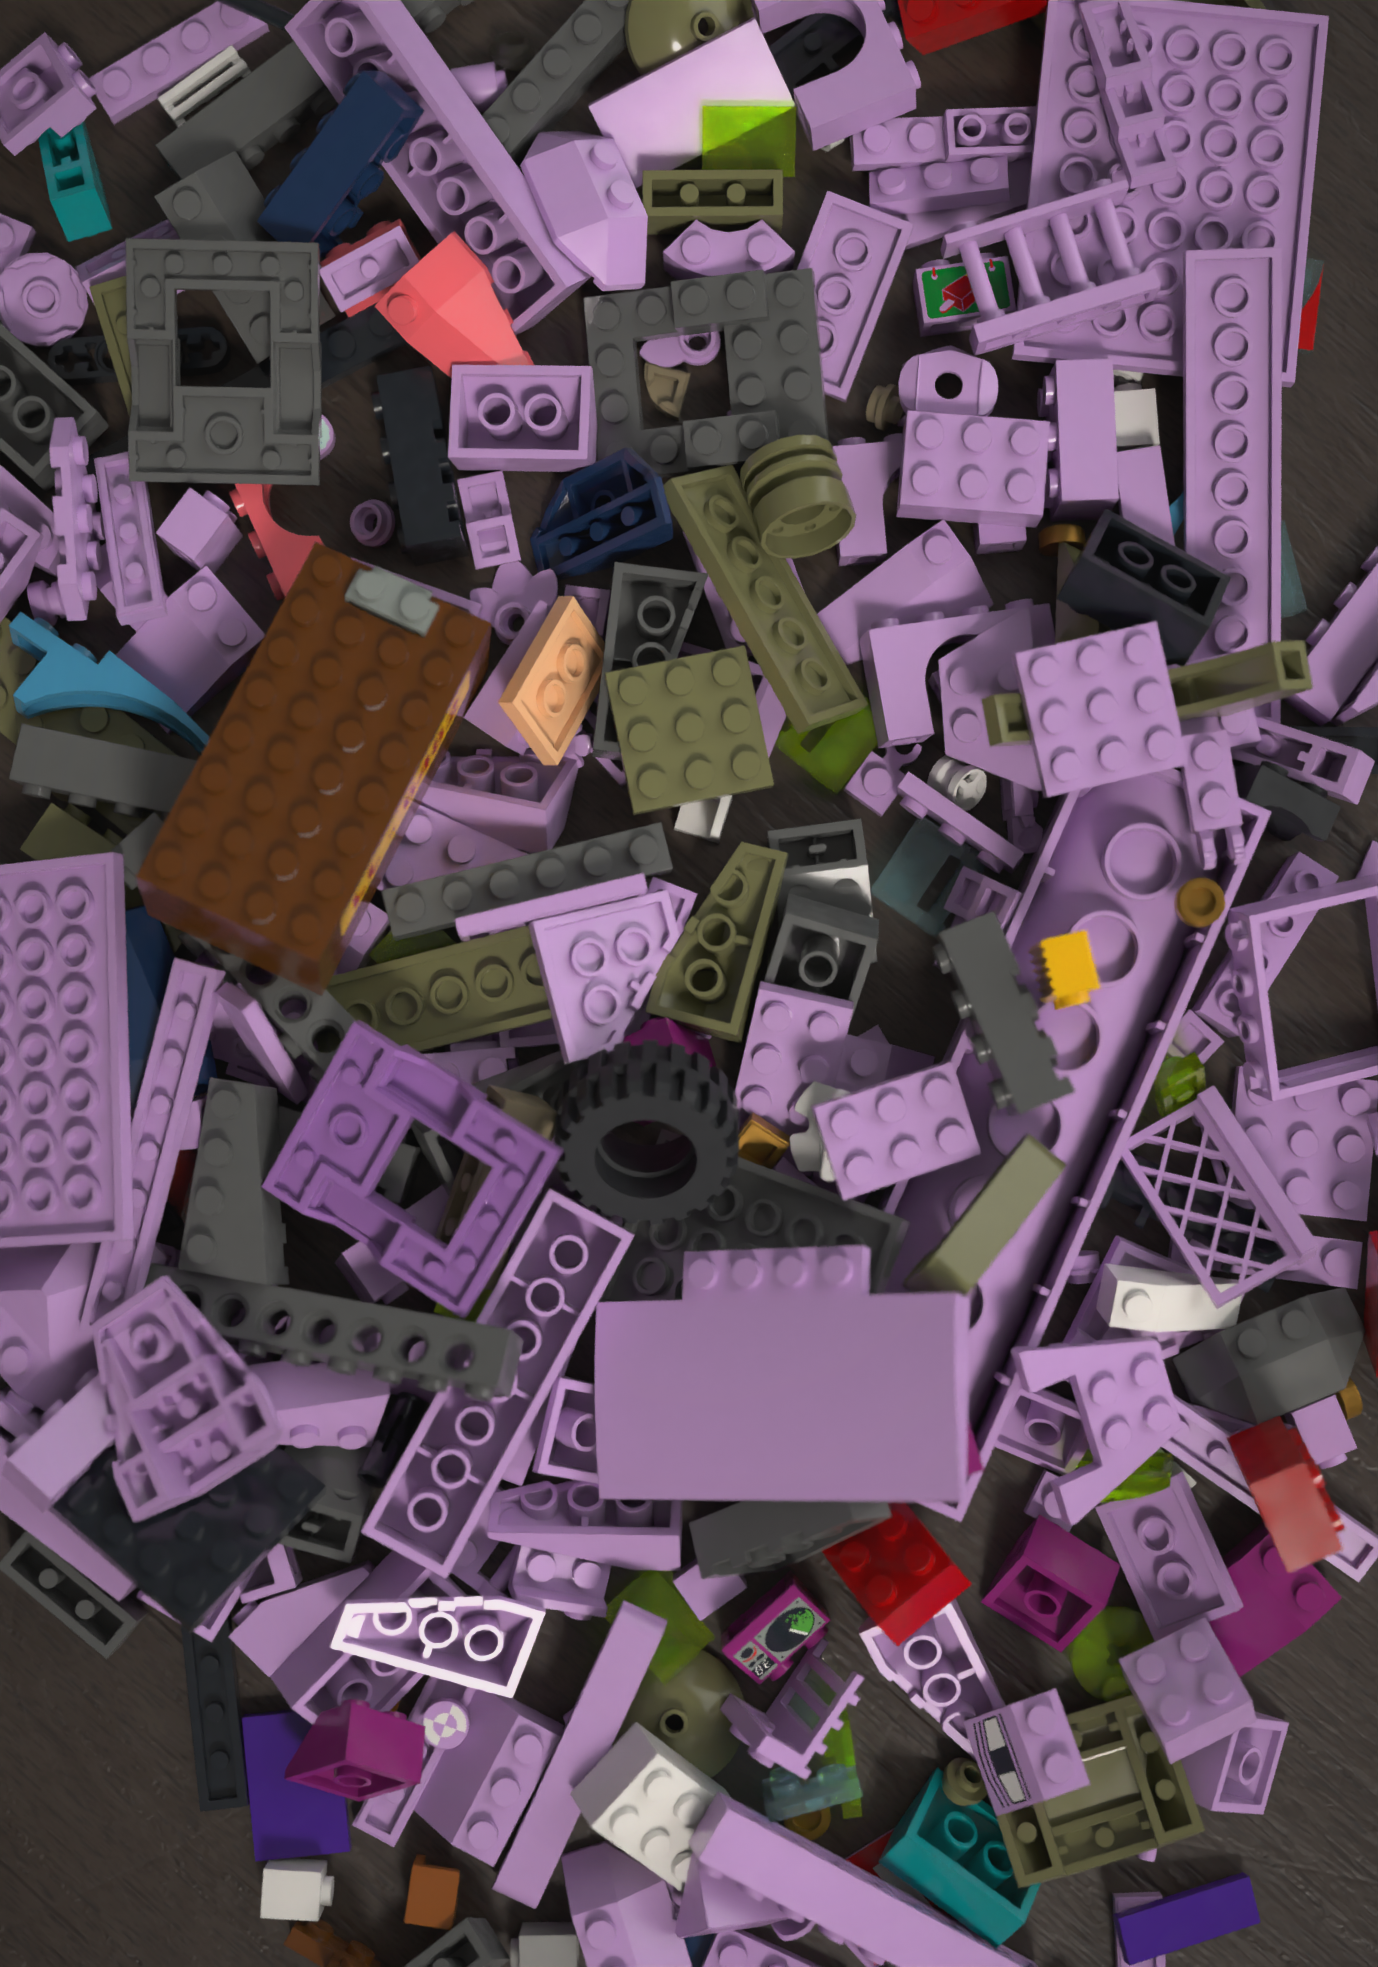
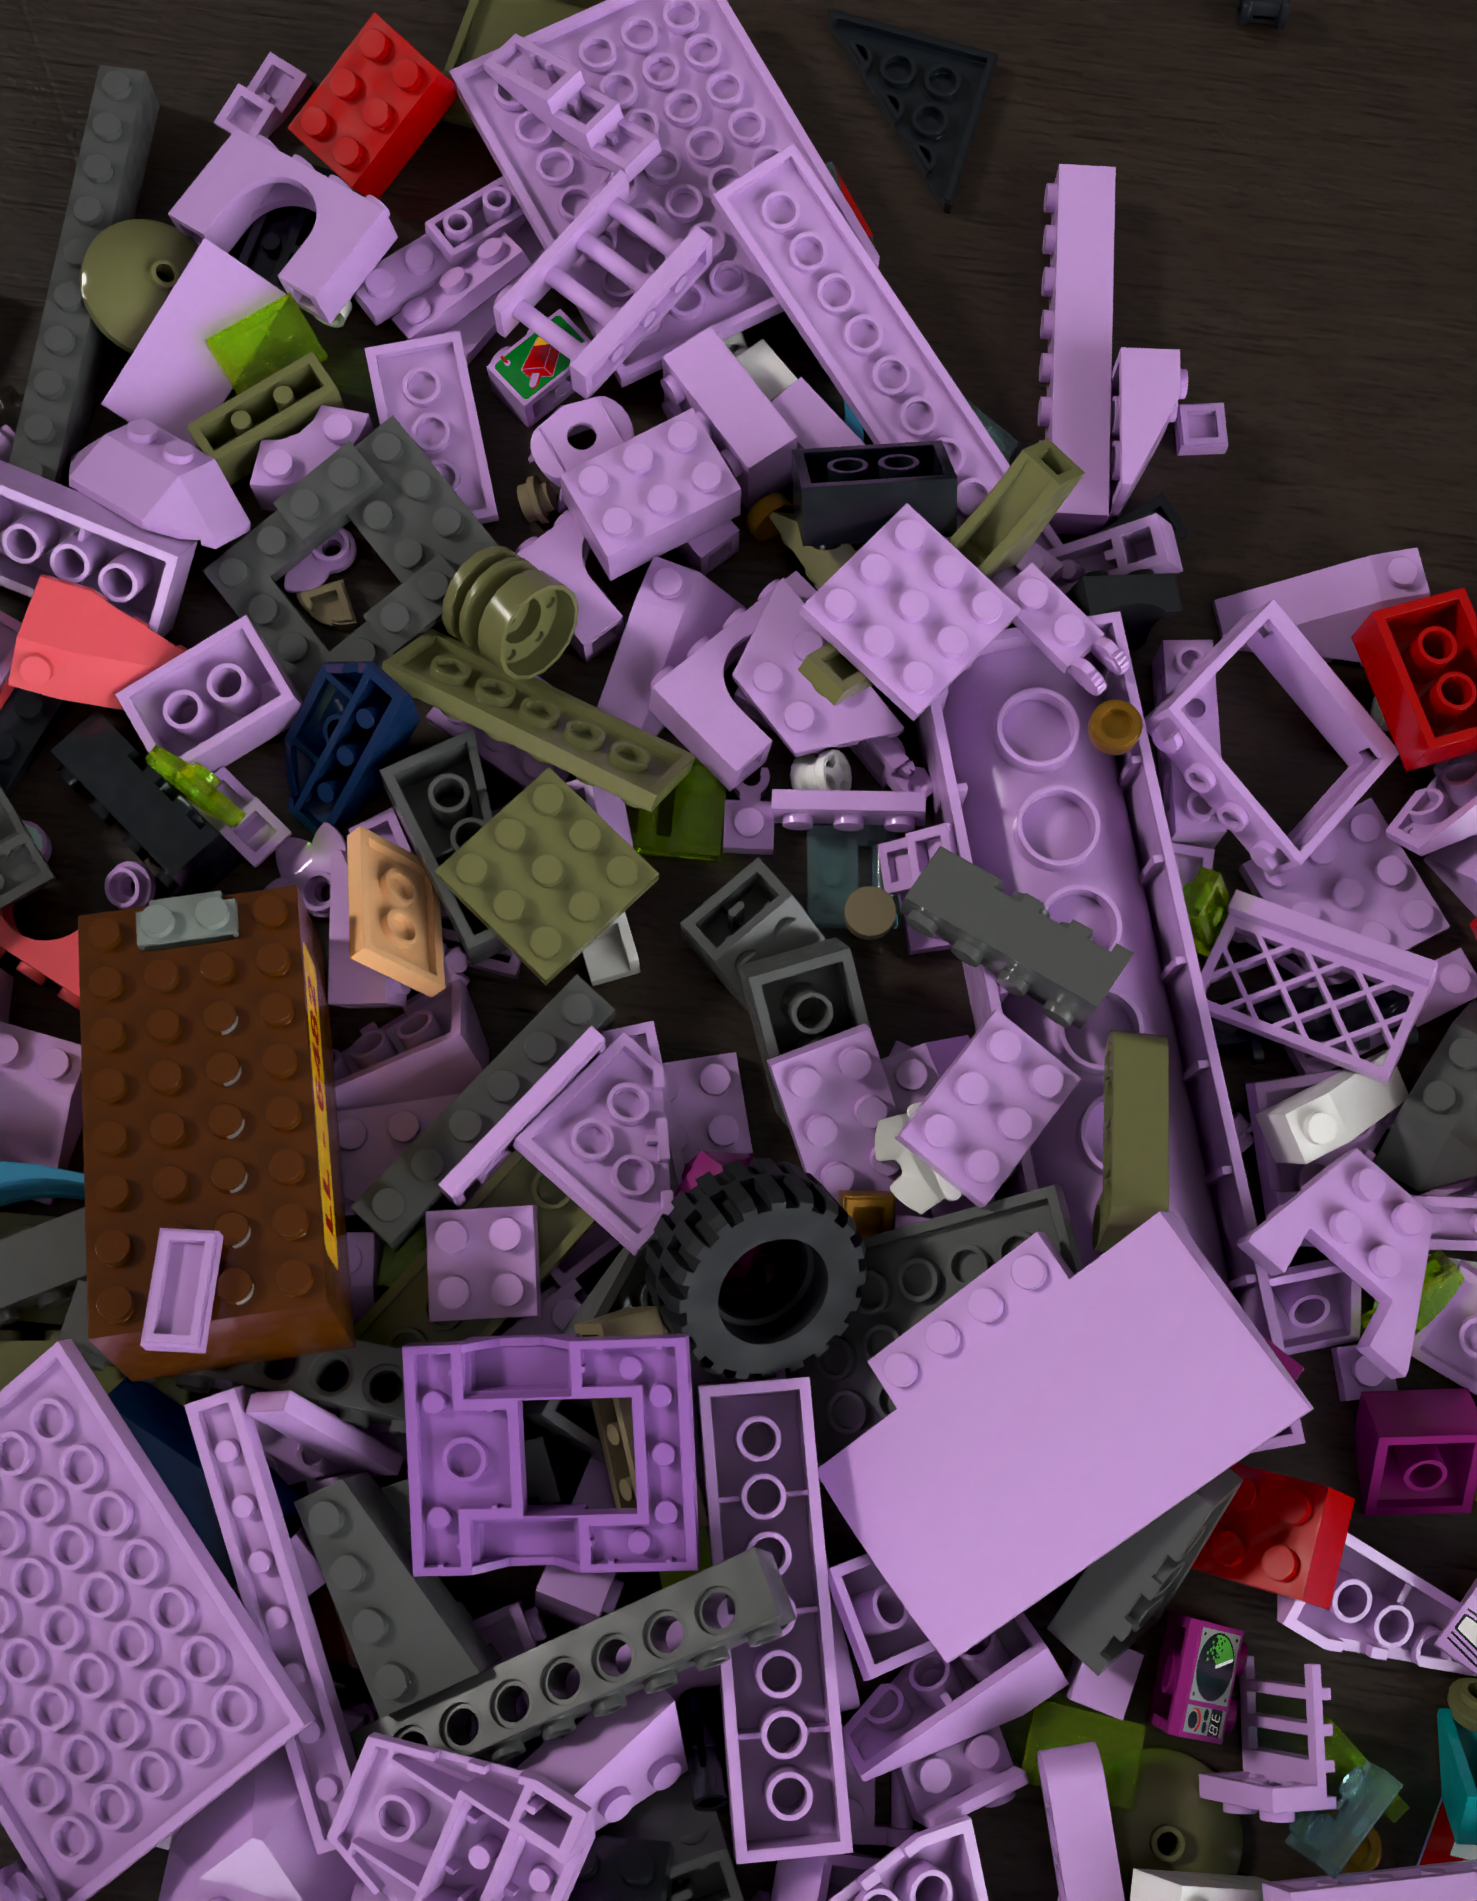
camera: 40 degrees left, 10 degrees down
(221, 887) = (182, 1290): none -> lavender tile
(308, 1267) = (511, 1629): none -> lavender bracket
(453, 994) = (483, 1263): none -> lavender plate
(469, 480) = (196, 784): none -> clear neon green plate
(719, 958) = (712, 1068): olive wedge -> none
(920, 915) = (869, 913): none -> dark tan tile
(1065, 969) = (1041, 855): yellow brick -> none

